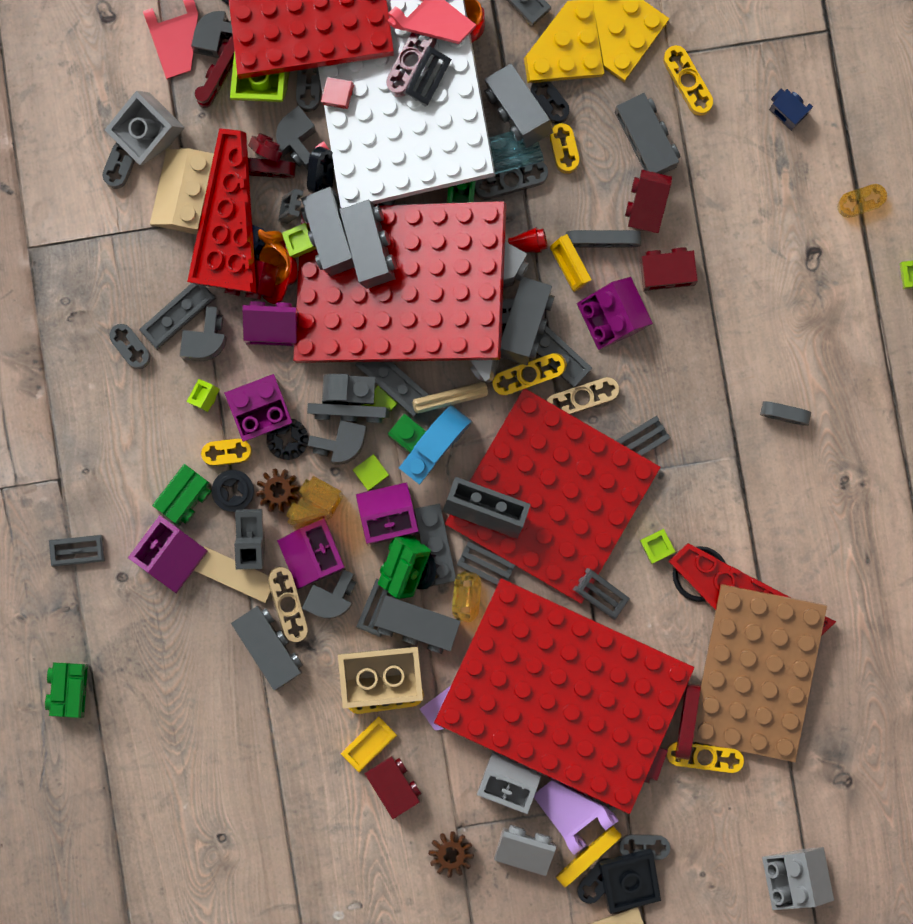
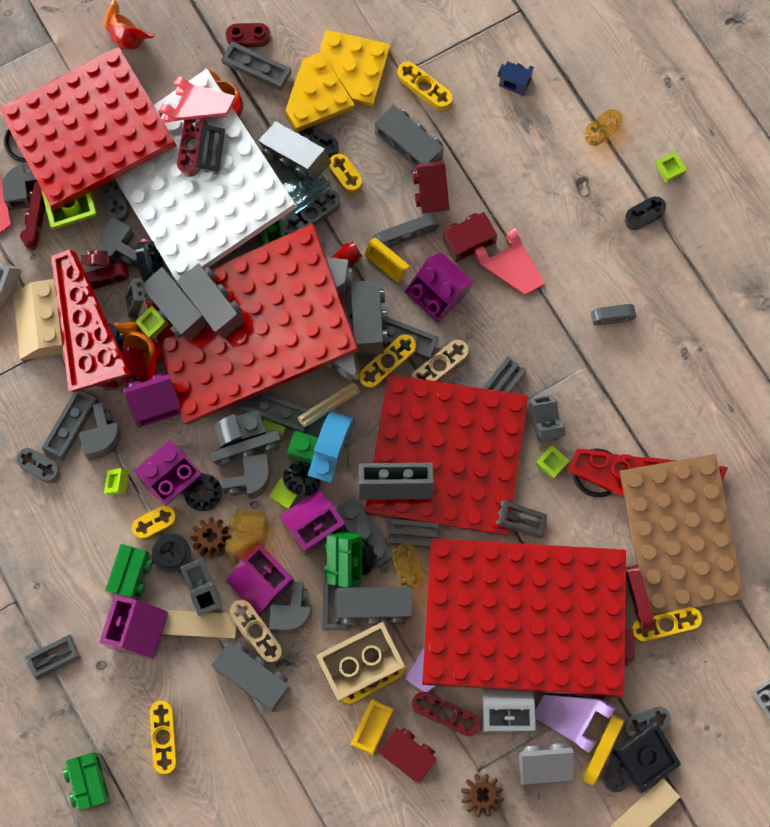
camera: 20 degrees left, 10 degrees down
(151, 665) = (157, 757): none -> yellow beam
(337, 93) = (140, 193): tile -> none
(384, 469) = (294, 482): none -> black gear
(456, 779) = (465, 714): none -> dark red beam
(669, 499) = (546, 418): none -> dark grey brick
(701, 318) = (512, 265): none -> coral flag
(866, 320) = (642, 209): none -> black beam

